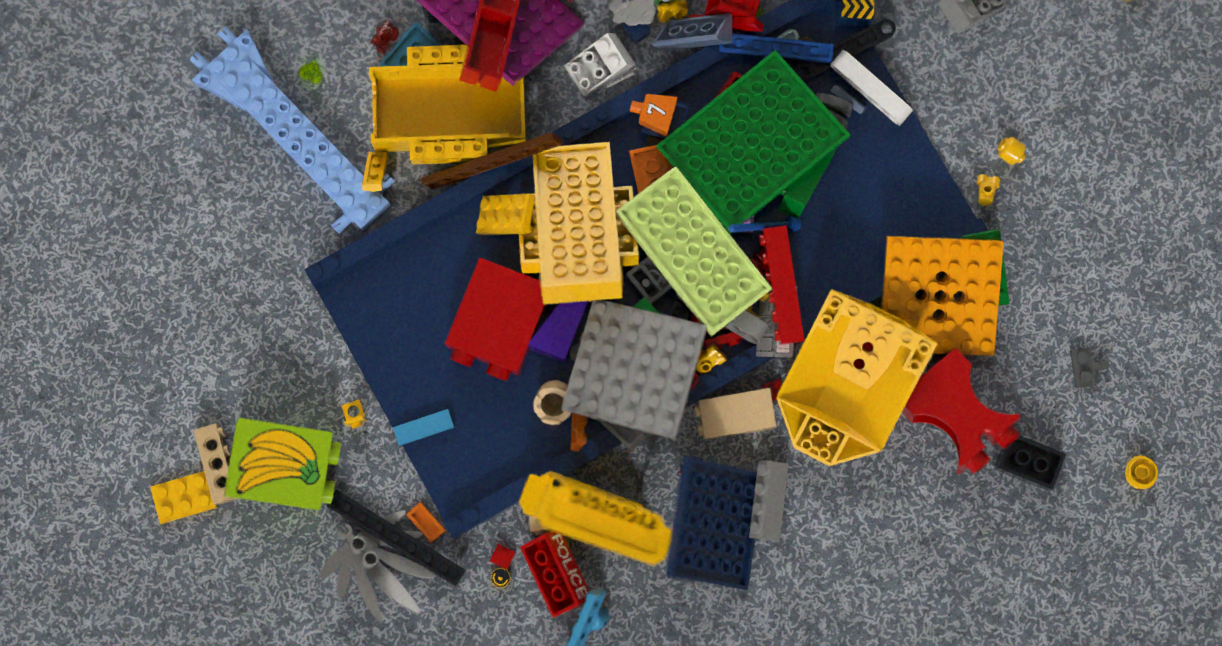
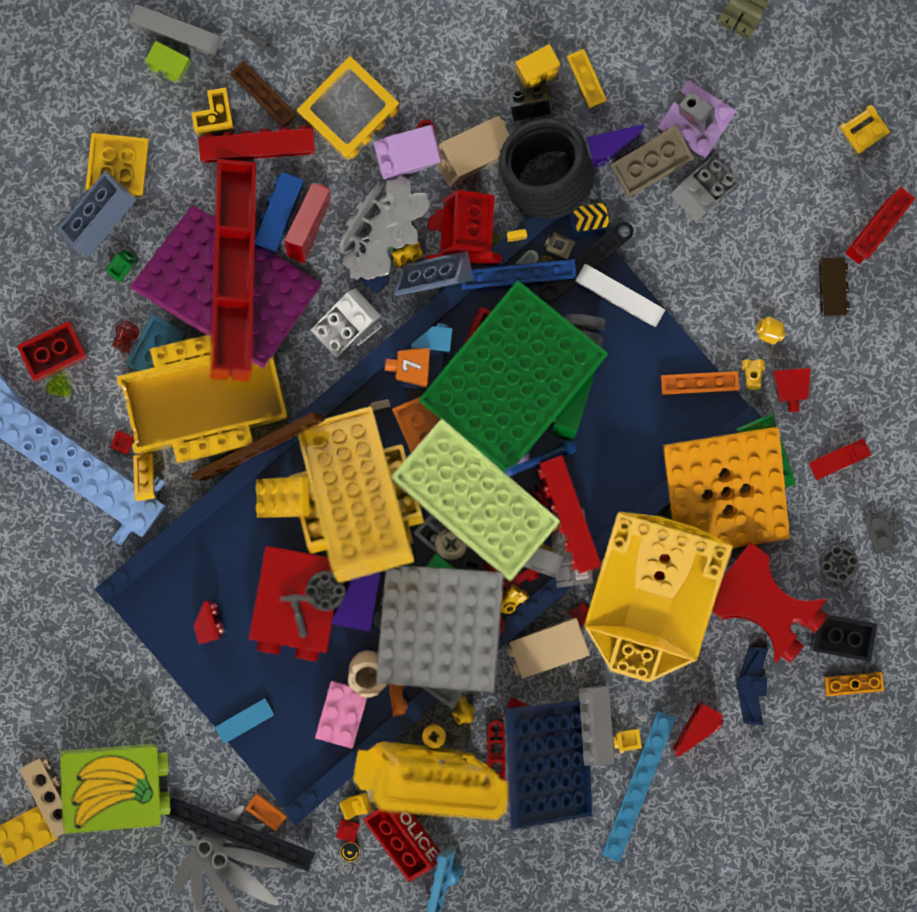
camera: 15 degrees left, 5 degrees up
(312, 36) = (52, 351): none -> red brick
(354, 422) = (176, 727): yellow bracket -> none
(360, 137) = (122, 442): none -> red tile
(406, 324) = (207, 624): none -> red slope
(498, 330) = (298, 616): none -> dark grey piece
(515, 532) = (355, 805): none -> yellow bracket
(520, 439) = (341, 715): none -> bright pink brick
(529, 311) = (326, 590): none -> dark grey tile
(601, 472) = (428, 740): none -> yellow piece
(618, 148) = (380, 405): none -> dark tan tile
(640, 461) = (463, 711): none -> yellow plate
(651, 288) = (449, 553): none -> dark tan gear
(667, 514) = (496, 757): none -> red beam
(686, 91) = (435, 339): none -> dark azure slope
(782, 9) = (516, 235): none -> yellow tile
(796, 522) = (627, 740): none -> yellow bracket
(799, 570) = (638, 786): none -> dark azure plate
(820, 30) = (559, 246): none -> dark tan window
(842, 93) = (600, 310): sand blue tile -> none
(874, 517) = (698, 727): none -> red slope
(930, 492) = (752, 685): none -> dark blue plate
(933, 187) = (699, 383): none -> orange plate
(1021, 511) = (843, 683): none -> light orange tile
(1022, 208) = (792, 386): none -> red torso
(1037, 390) = (838, 563): none -> dark grey tile
(1057, 287) = (839, 459): none -> red slope
(1080, 121) = (833, 287): none -> dark brown brick
(1137, 69) = (880, 225): none -> red fence

